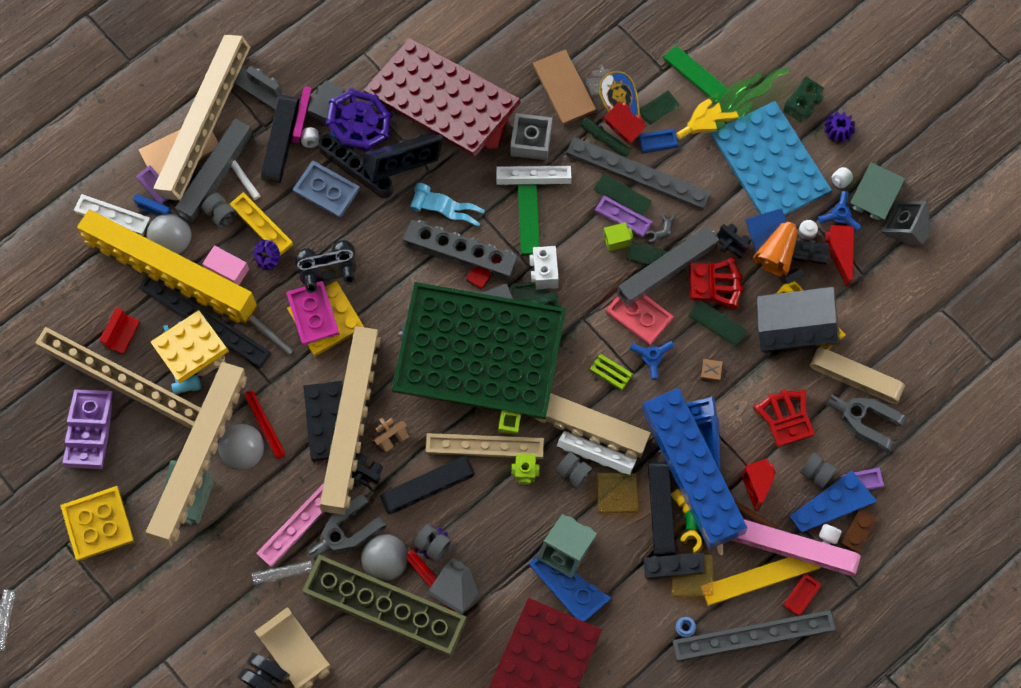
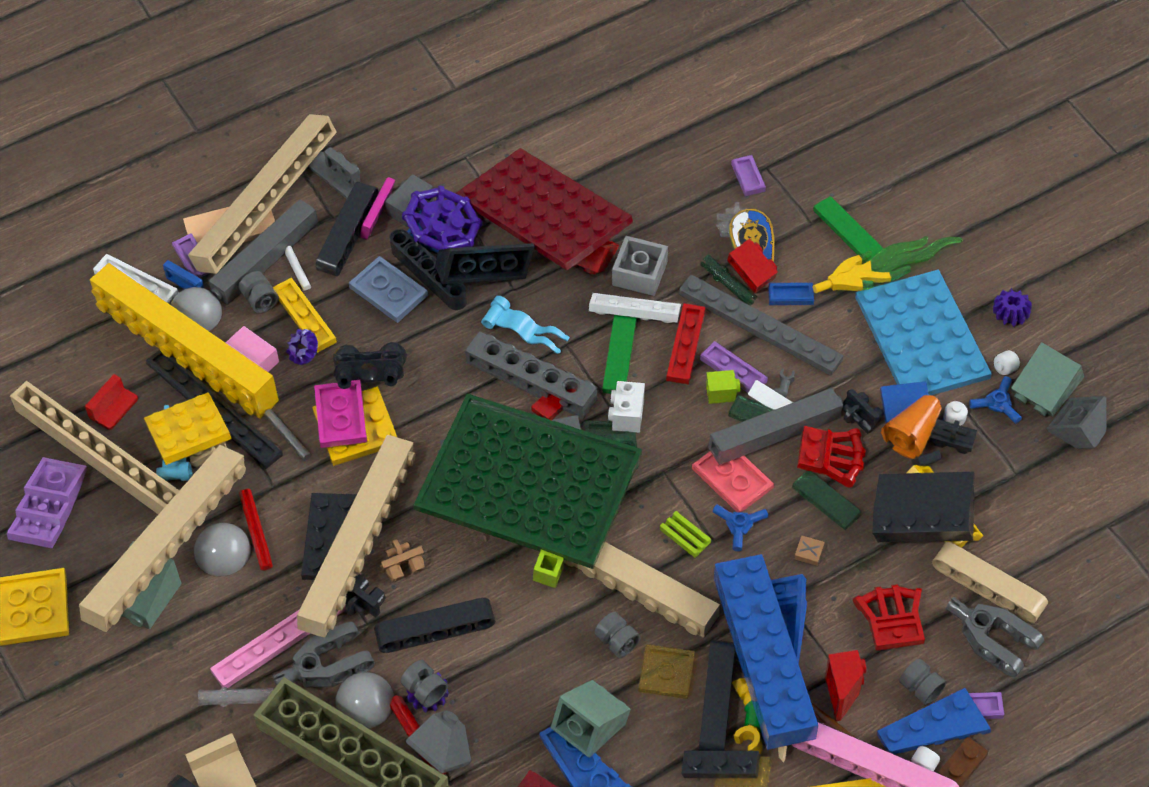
camera: 10 degrees right, 15 degrees down
(309, 137) = (381, 233): white piece -> none
(483, 445) = (514, 592): tan plate -> none
(525, 468) = (557, 623): lime brick -> none
(564, 87) = (690, 223): medium nougat tile -> none
(581, 201) = (685, 344): none -> red plate
(596, 452) = (656, 624): white plate -> none
(604, 34) = (748, 175): none -> medium lavender tile
(622, 194) = (737, 343): clear green tile -> none
(657, 240) = (767, 396): none -> white sticker
(658, 107) = (798, 259): clear green tile -> none
(801, 98) = (973, 272): clear green brick -> none
(841, 250) = (991, 438): red slope -> none

